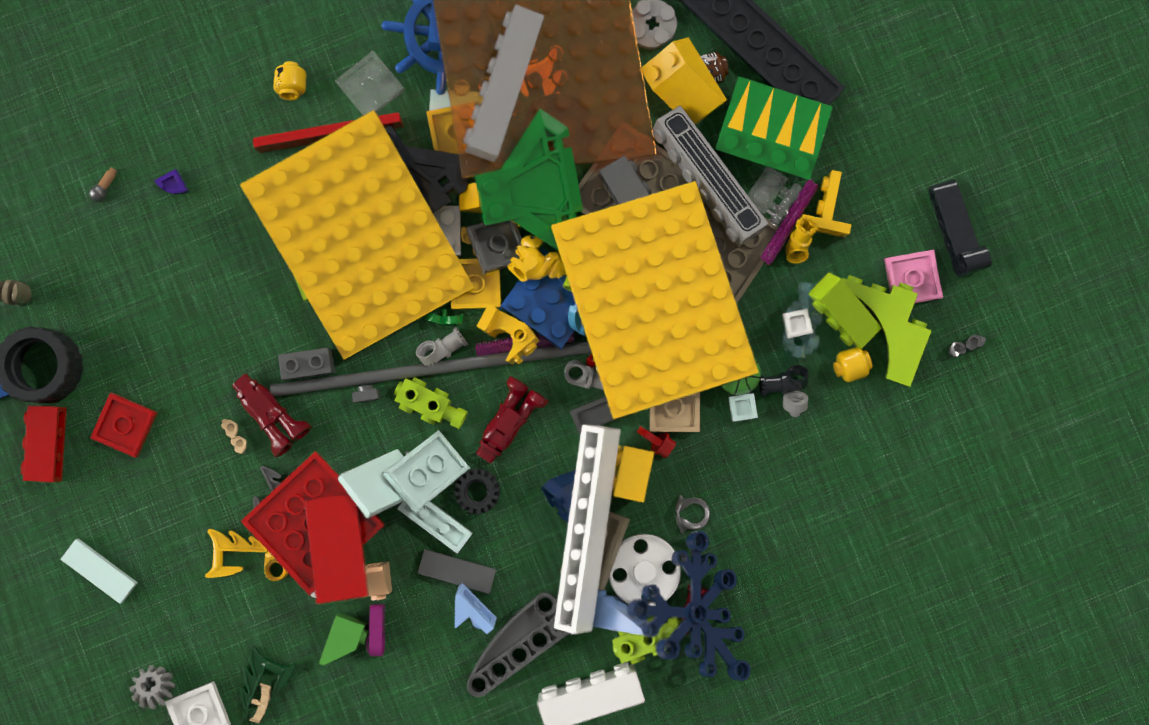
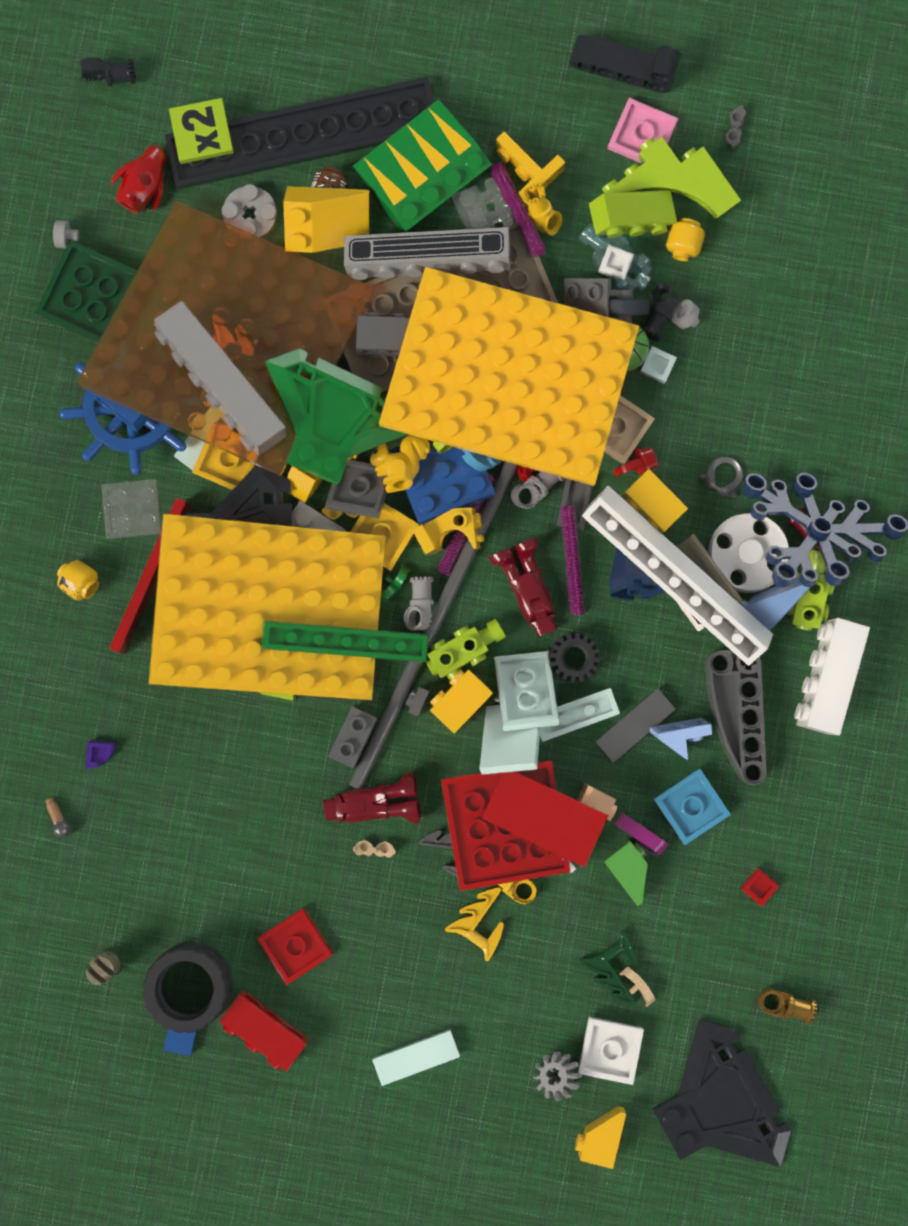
camera: 50 degrees left, 0 degrees up
(372, 309) = (344, 641): none -> green tile
(384, 427) = (460, 701): none -> yellow brick
(423, 654) = (691, 806): none -> dark azure plate
(551, 440) = (572, 560): none -> magenta axle
(759, 326) = (593, 297): none -> dark grey plate

